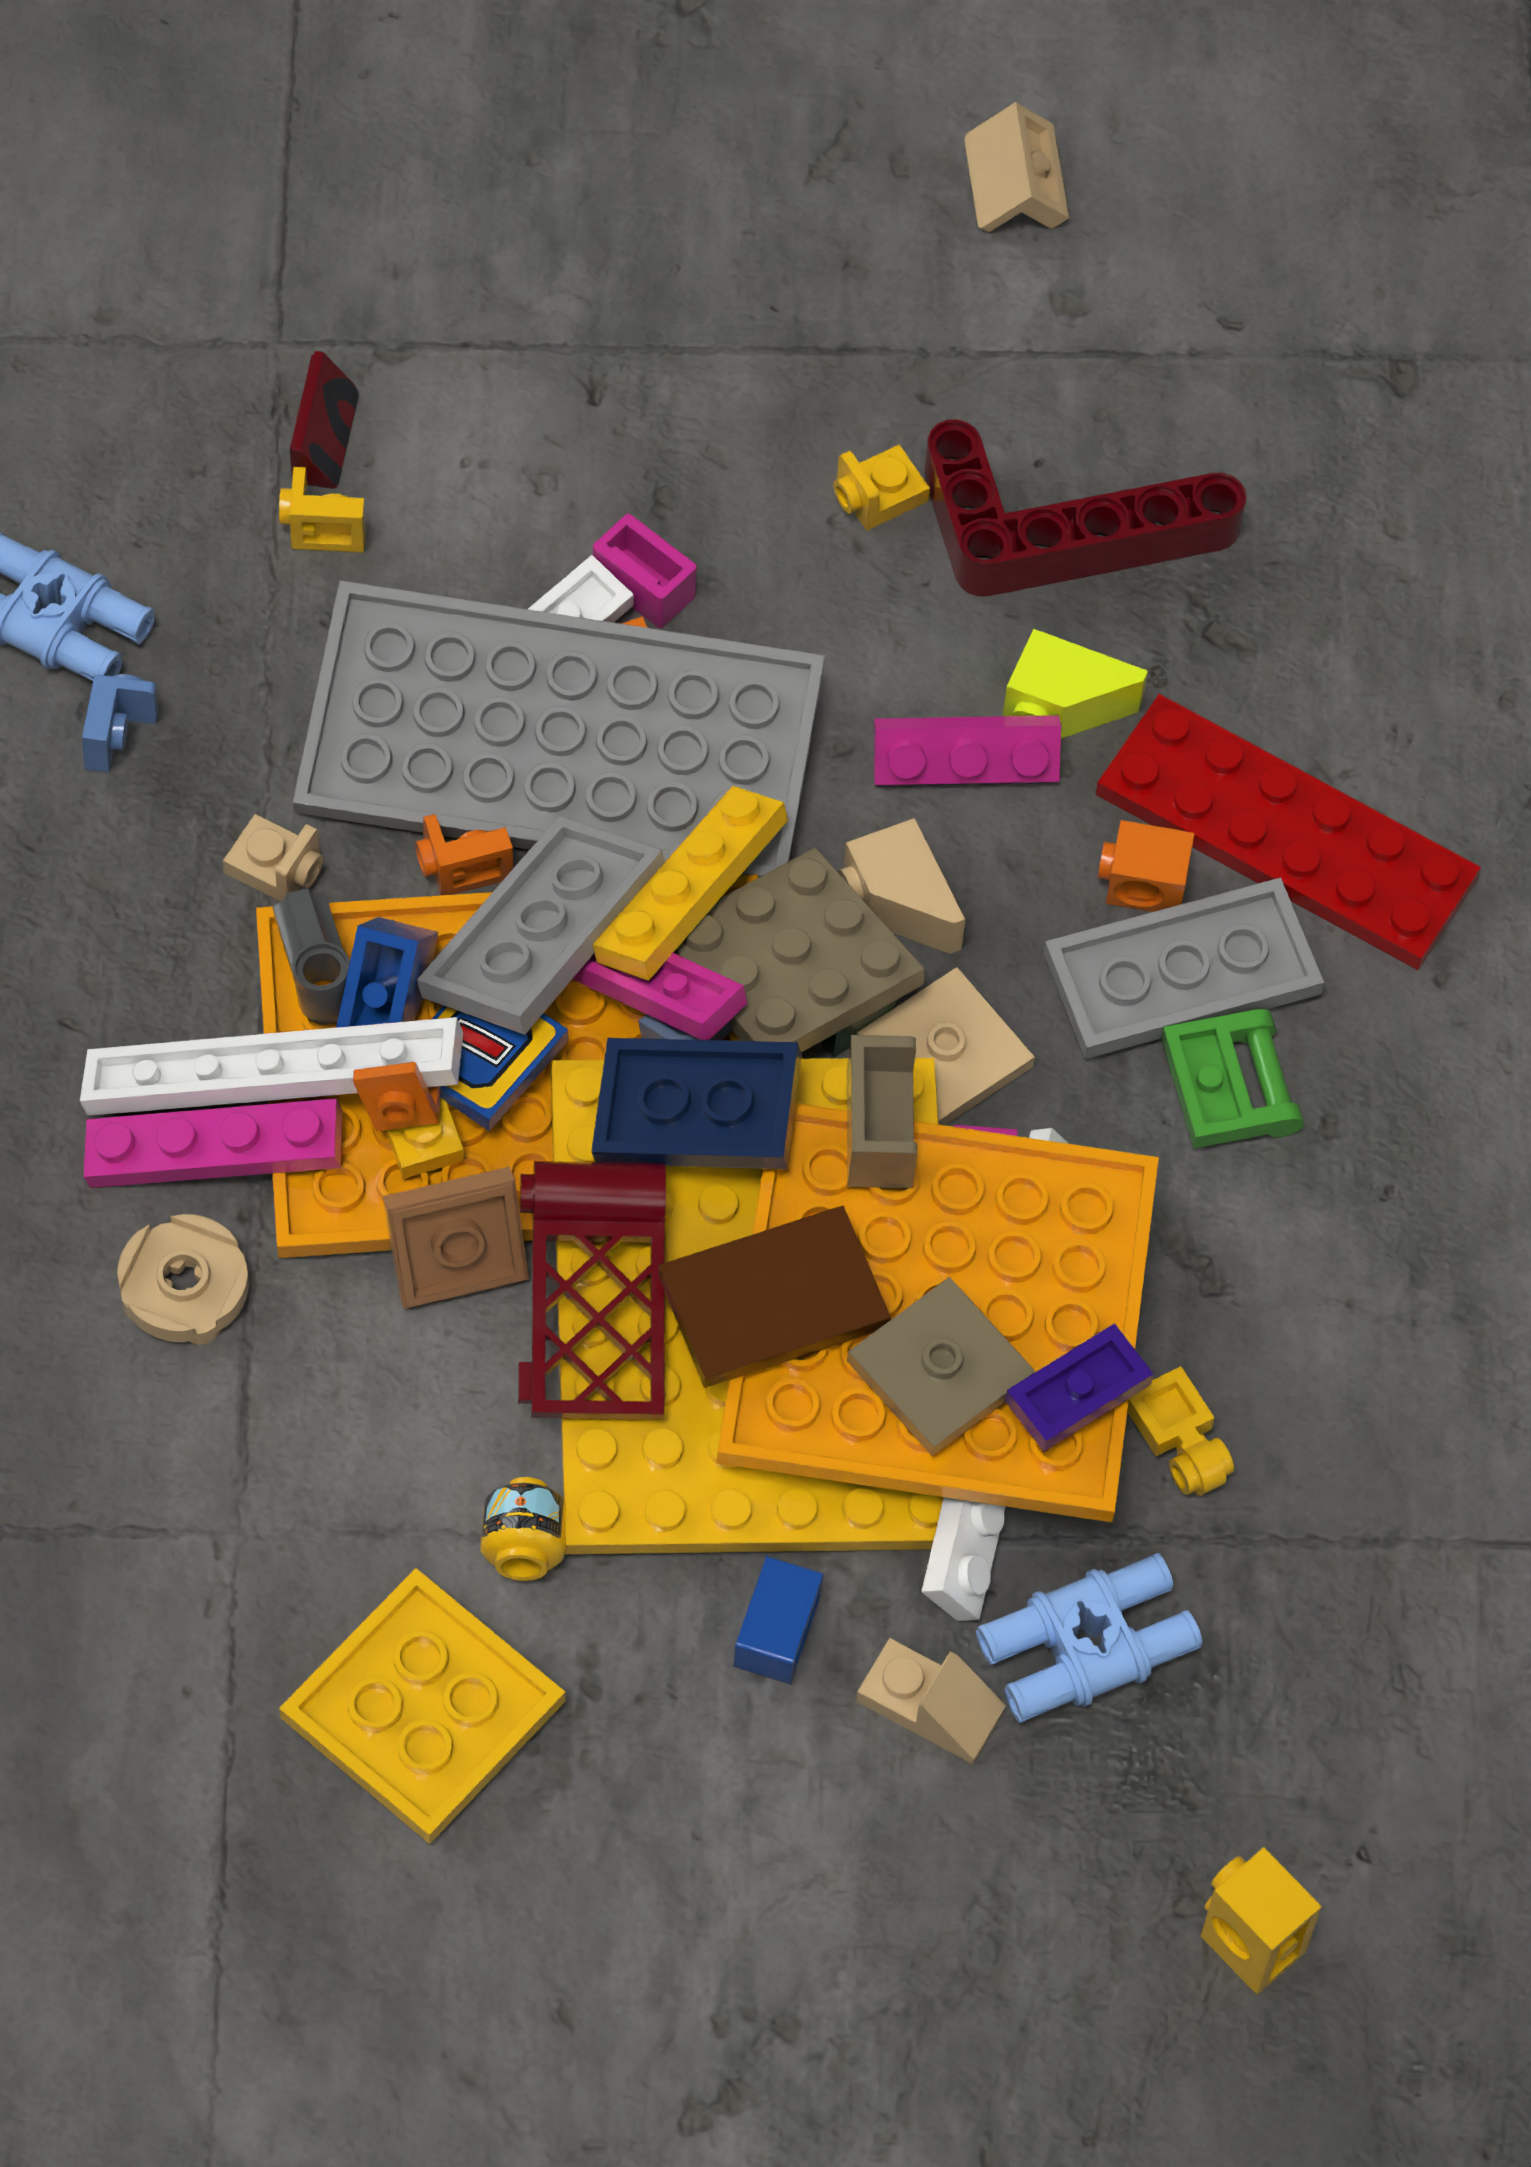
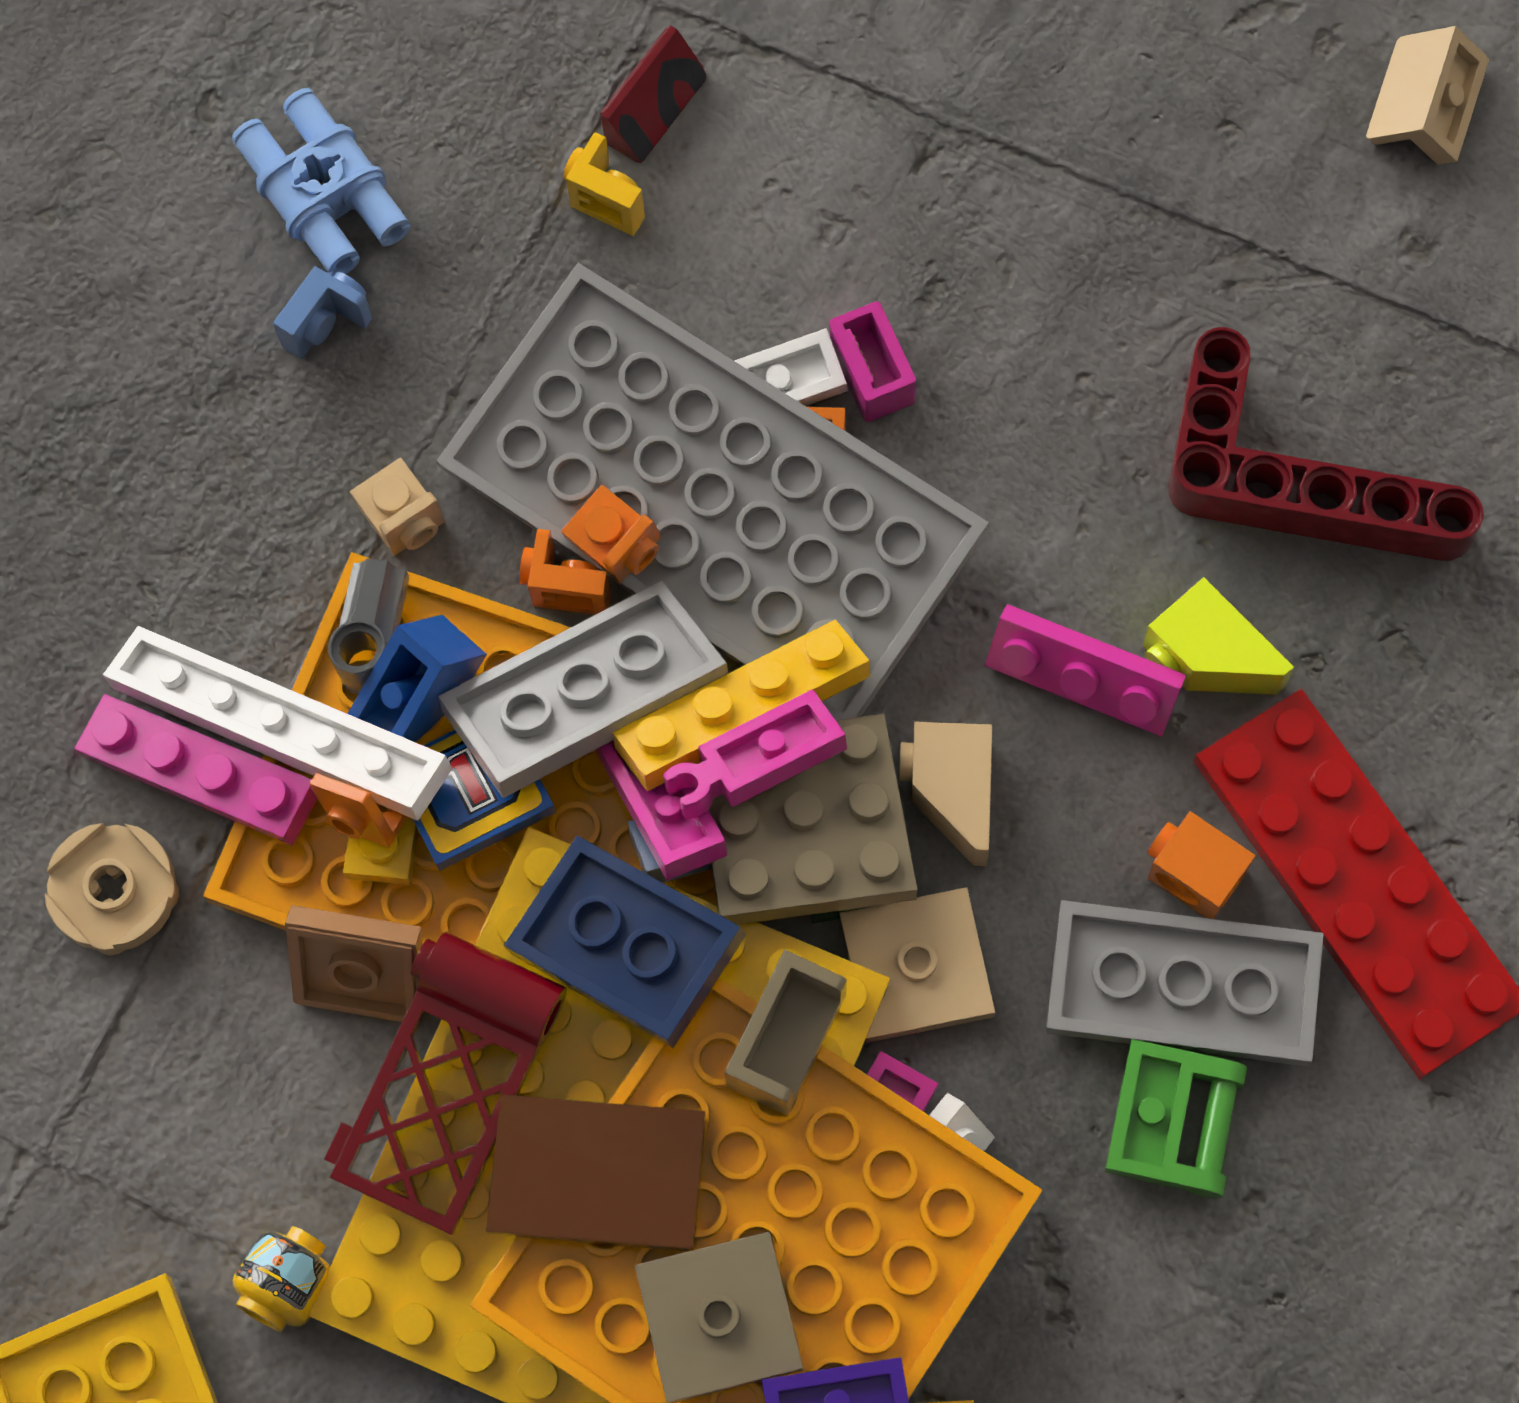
camera: 35 degrees right, 10 degrees up
(494, 795) = (613, 535): none -> orange bracket
(733, 909) = (758, 755): none -> dark pink plate
(879, 486) = (1138, 364): yellow bracket -> none

